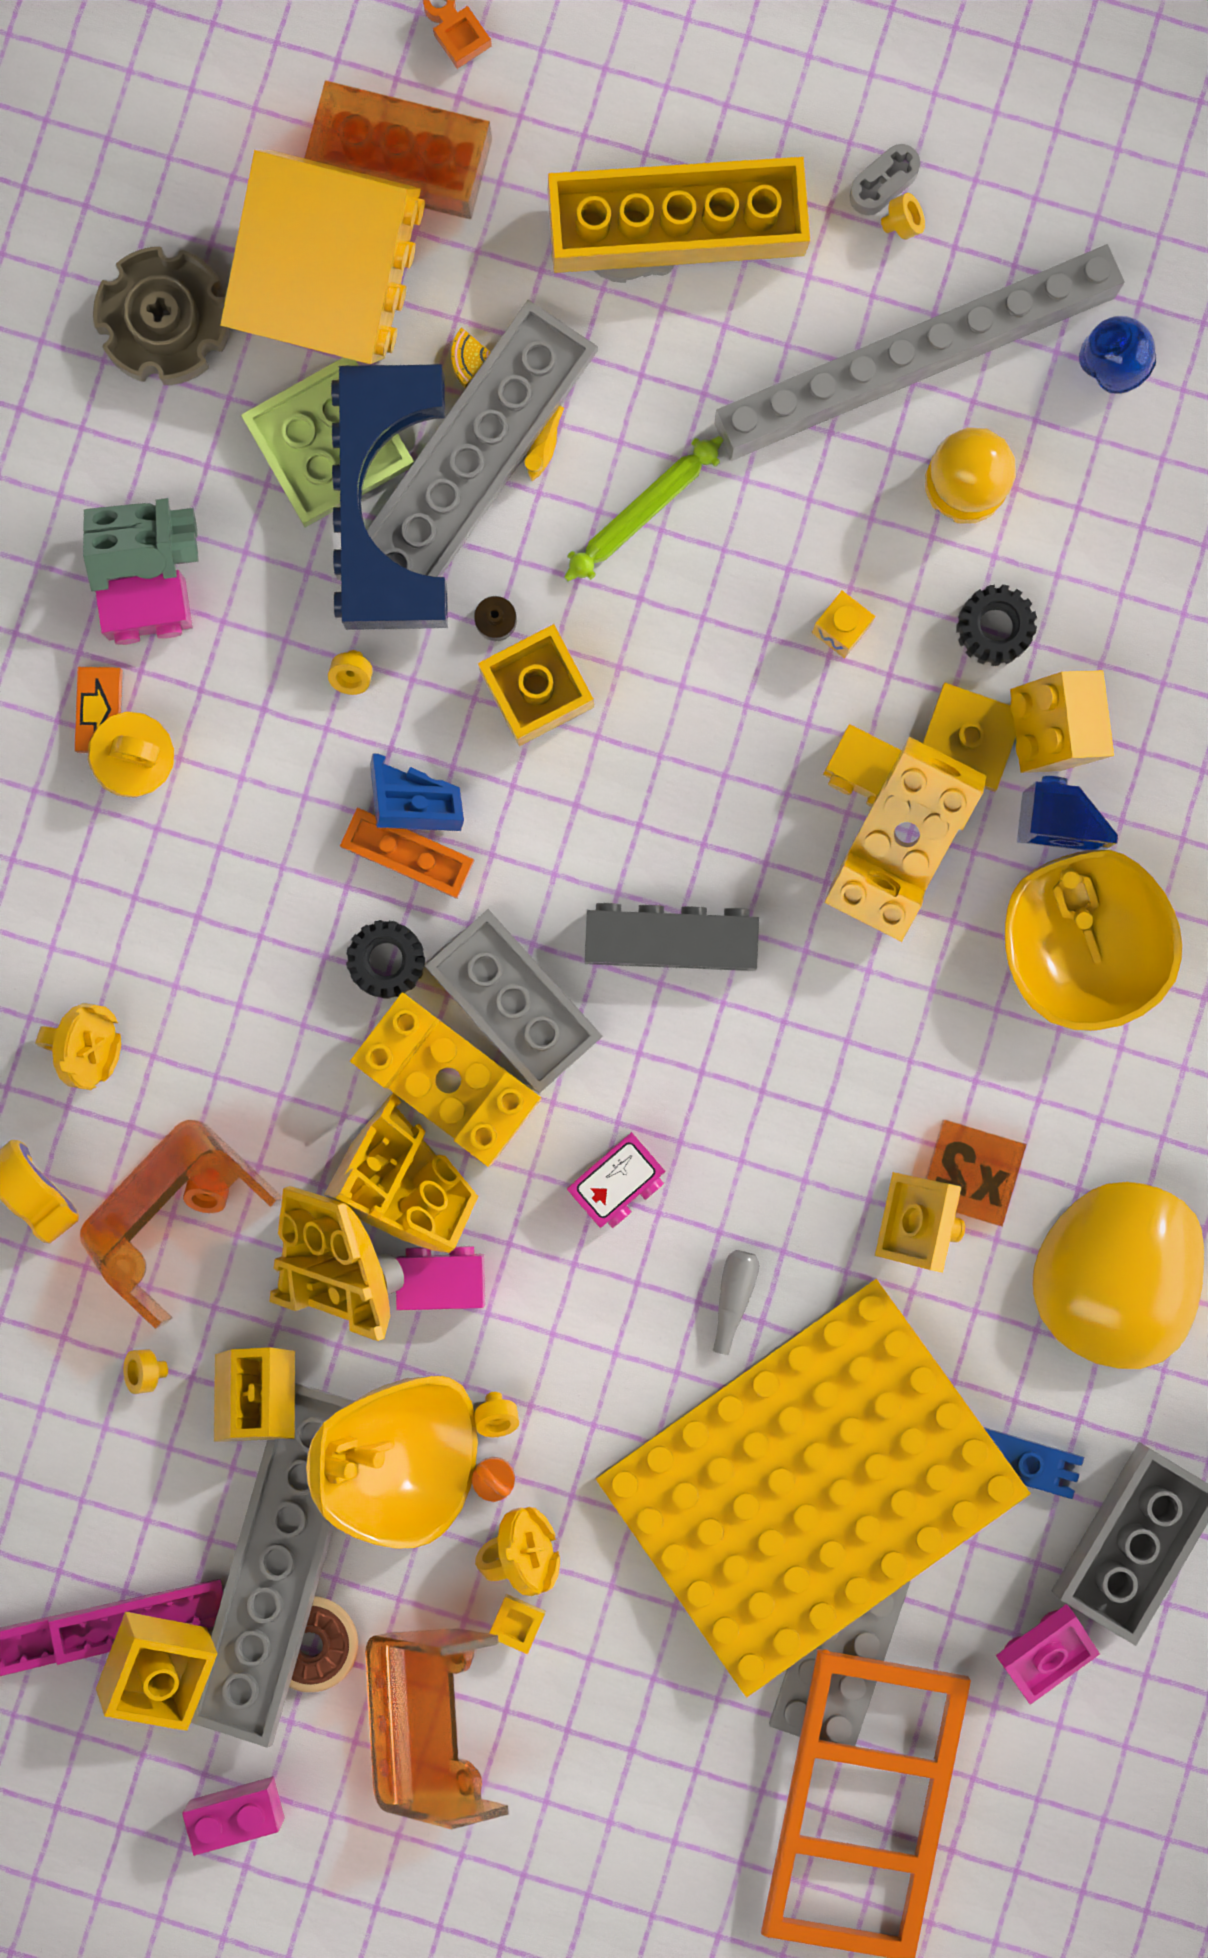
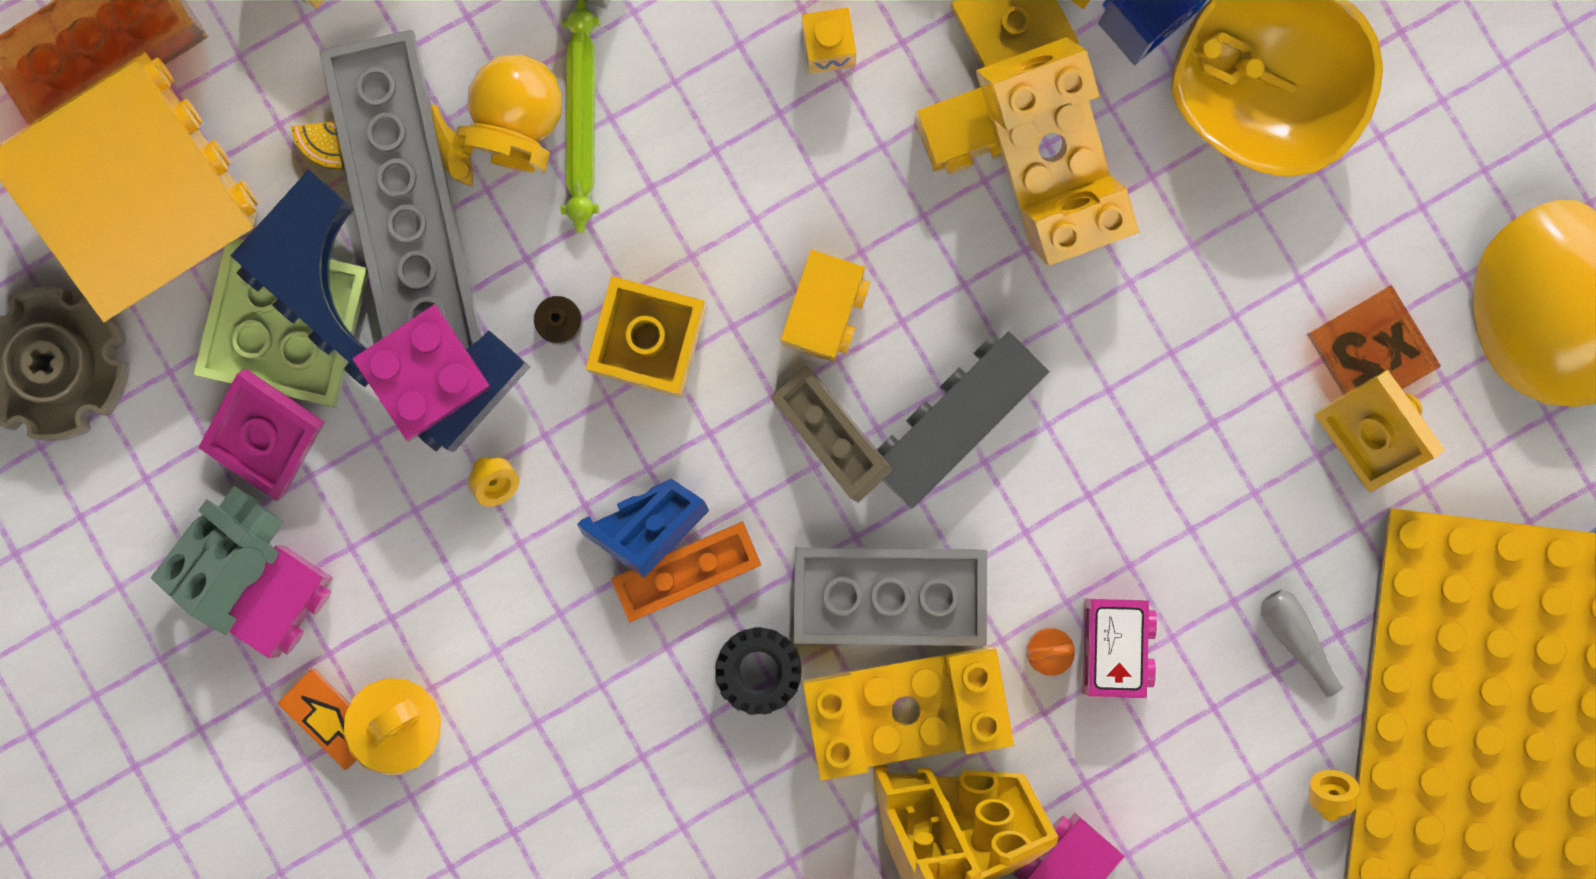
camera: 45 degrees left, 0 degrees up
(242, 494) = (261, 434): none -> dark pink plate
(376, 559) = (421, 373): none -> dark pink plate
(574, 1140) = (1050, 651): none -> orange tile
(584, 863) = (831, 434): none -> dark tan plate
(604, 461) = (512, 110): none -> yellow tile
(651, 1411) = (1333, 794): none -> yellow tile
(664, 783) = (824, 305): none -> yellow brick

